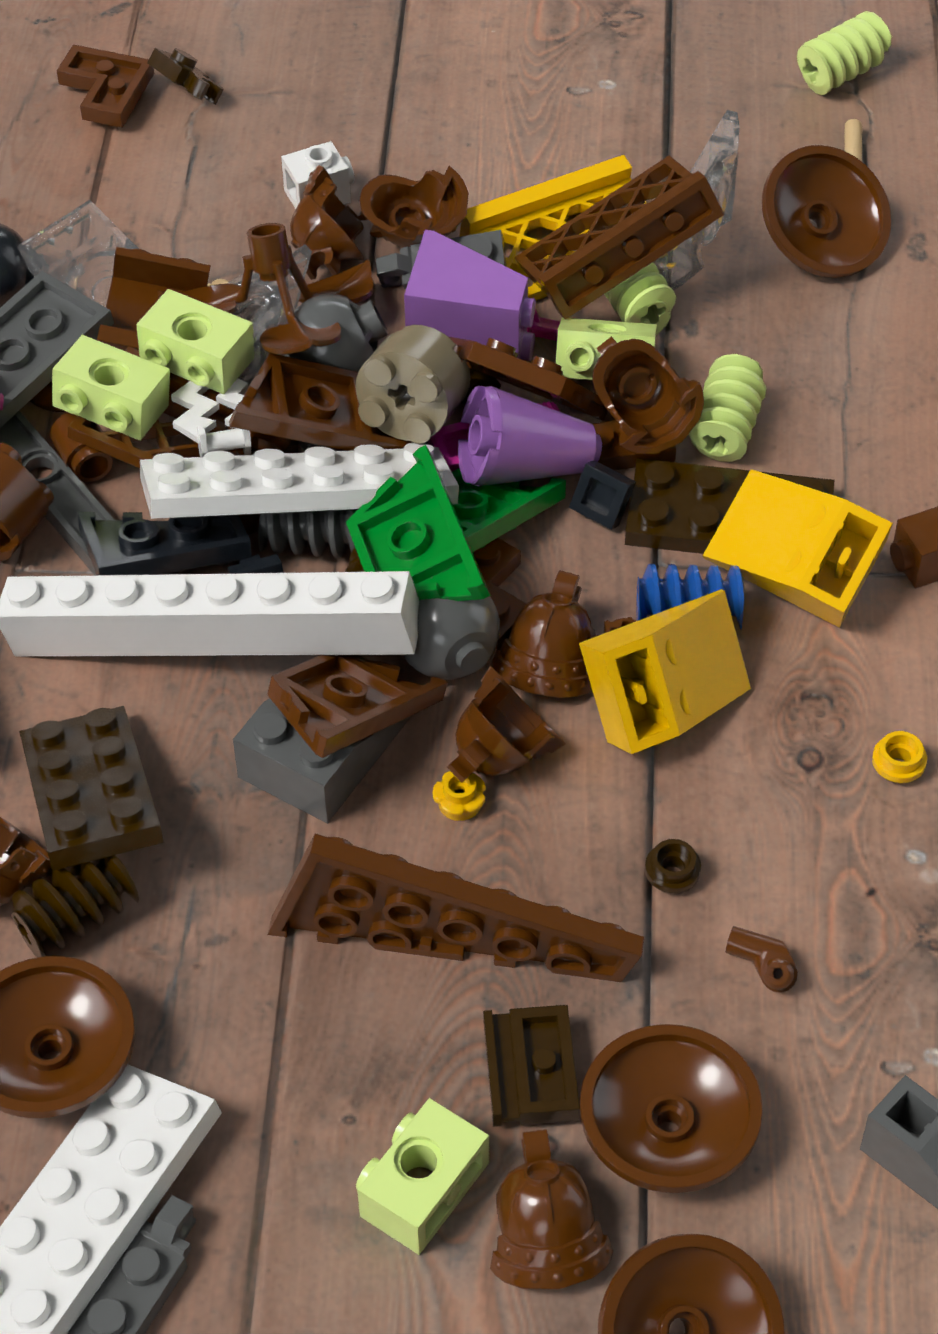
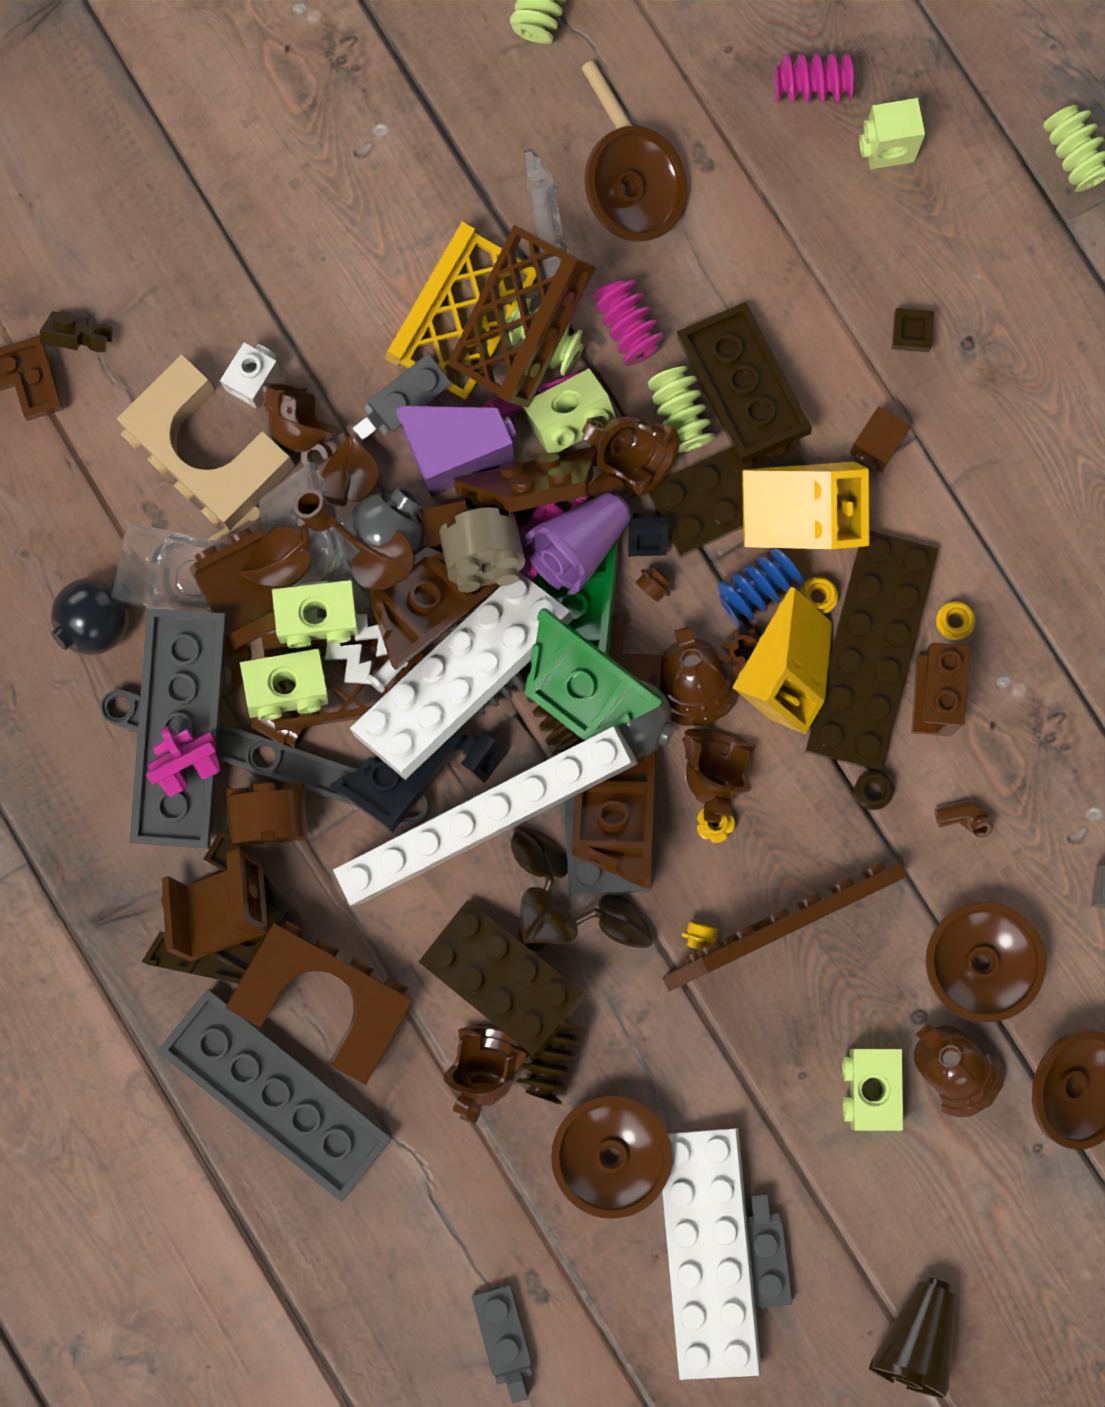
camera: 30 degrees left, 30 degrees up
(183, 766) = (546, 920): none -> dark brown plant
(203, 166) = (225, 491): none -> tan arch
(406, 207) = (354, 370): reddish brown helmet -> none
(531, 1065) = (884, 979): dark brown plate -> none
(575, 539) = (654, 583): none -> reddish brown plate
(732, 313) = (627, 321): none -> dark pink piece
(760, 640) = (825, 586): none -> yellow plate
(774, 736) = (872, 651): none -> dark brown plate
(815, 419) = (744, 383): none -> dark brown plate
(837, 782) = (940, 690): none -> reddish brown panel

